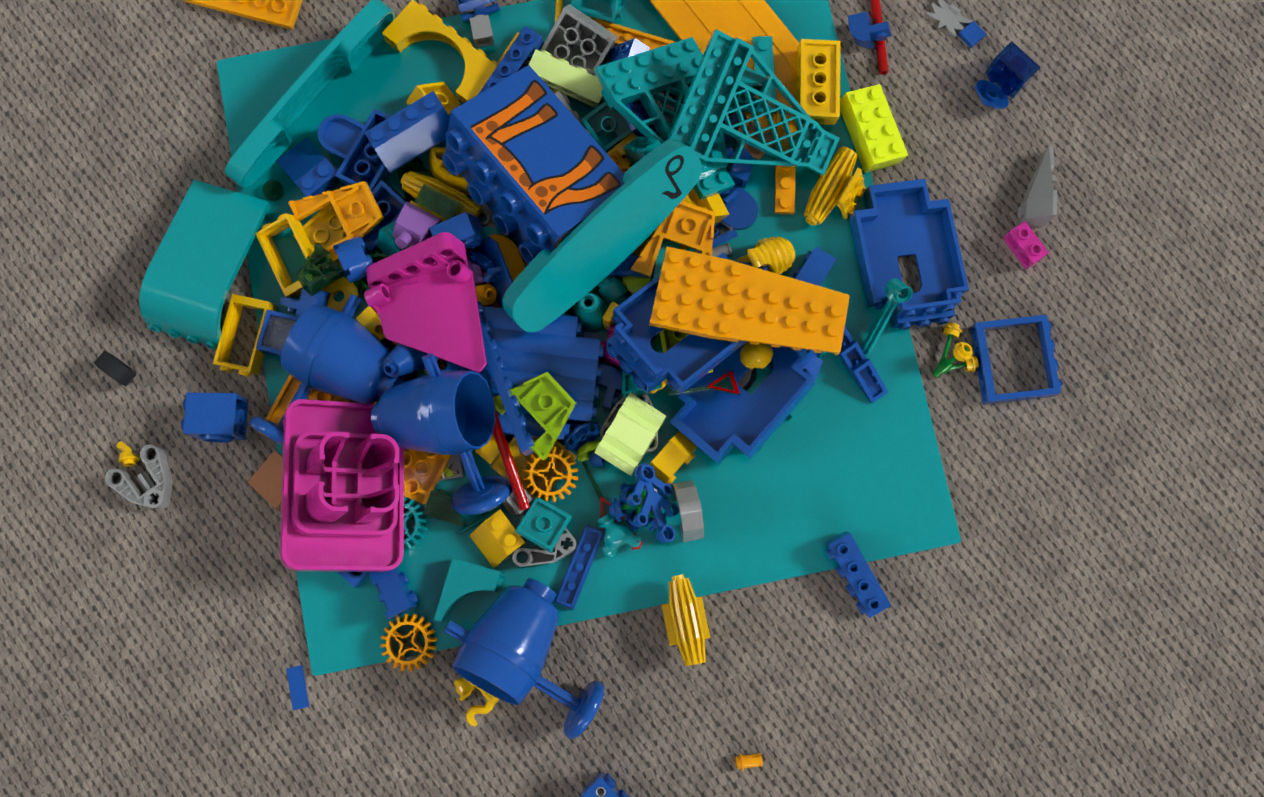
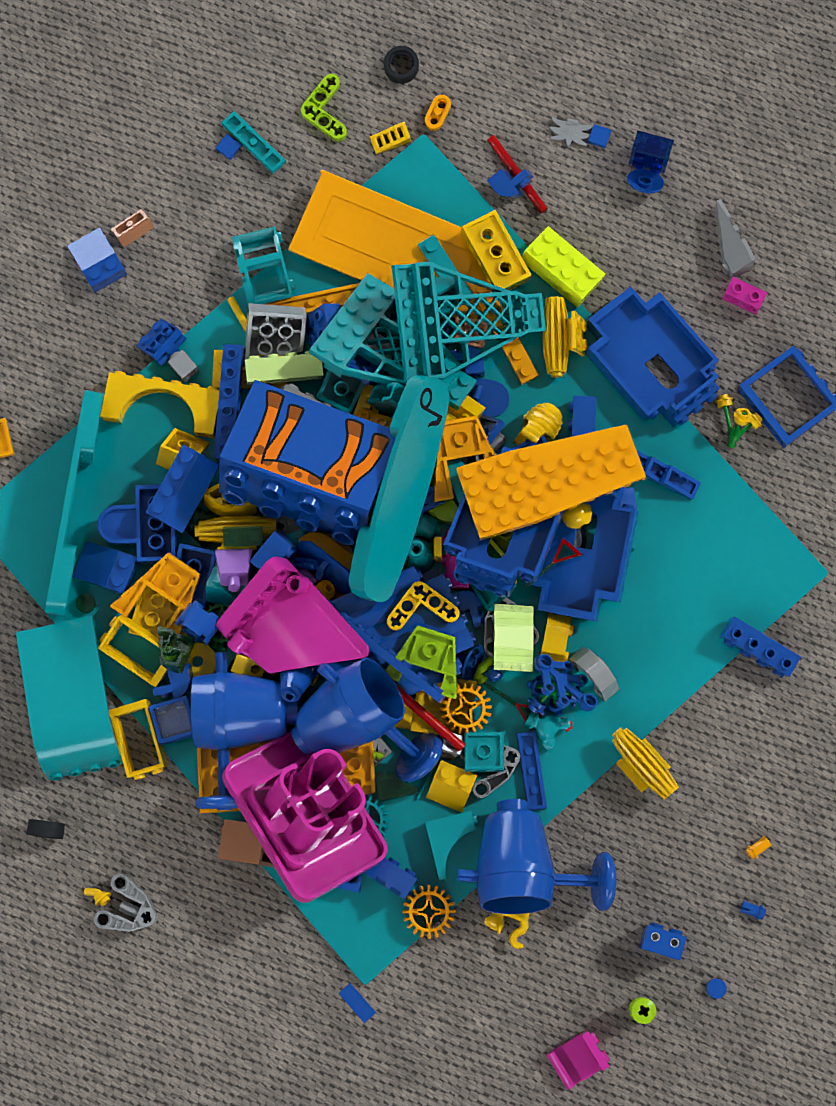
camera: 25 degrees left, 0 degrees up
(215, 416) = (156, 821): blue brick -> none
(561, 349) = (416, 600): none -> yellow beam
(896, 293) = (662, 398): teal axle -> none

